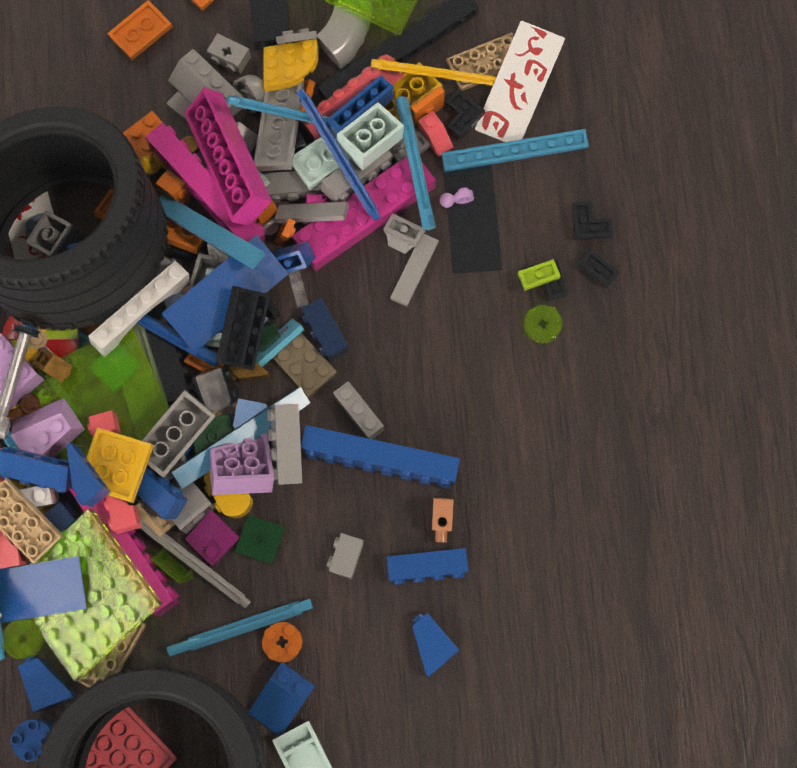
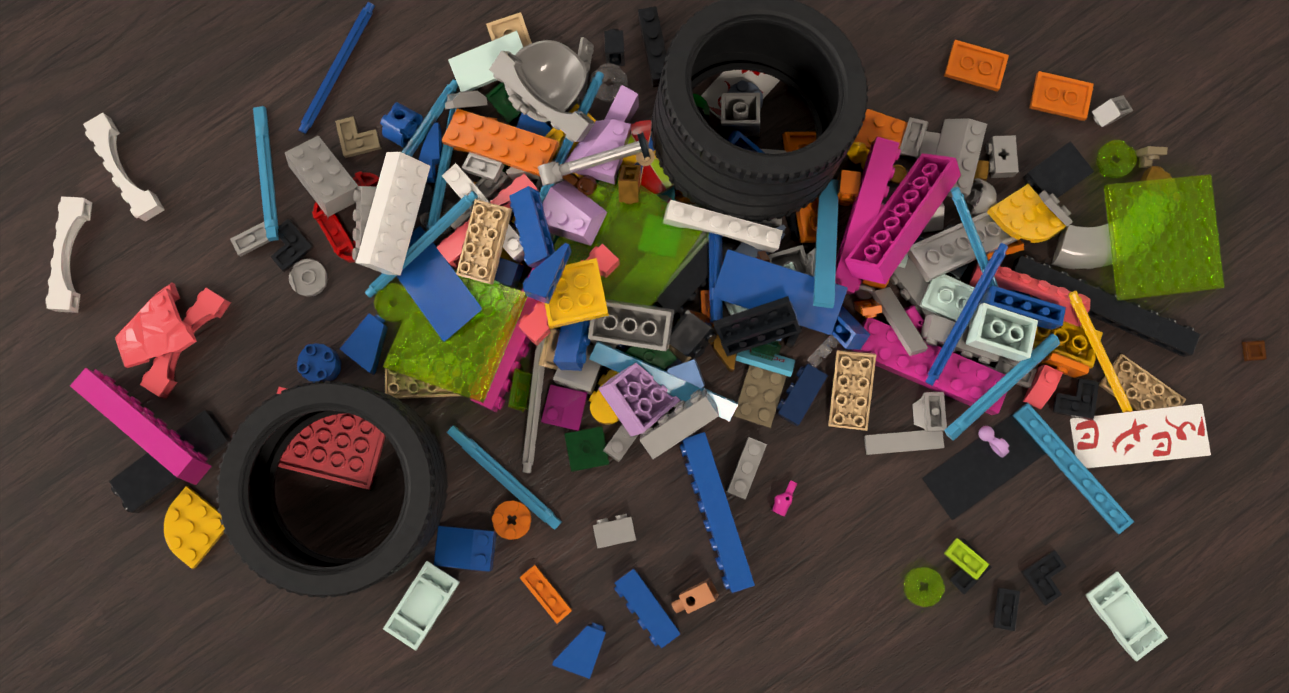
camera: 60 degrees right, 5 degrees up
(167, 113) = (913, 137): none -> light grey plate
(229, 75) = (981, 170): none -> pearl gold brick
(272, 506) = (619, 444): none -> light grey hinge
(345, 285) = (852, 389): none -> tan tile
(364, 648) = (546, 594): none -> orange plate
(404, 395) = (781, 504): none -> dark pink piece
(656, 179) = (1126, 616): none -> light aqua slope

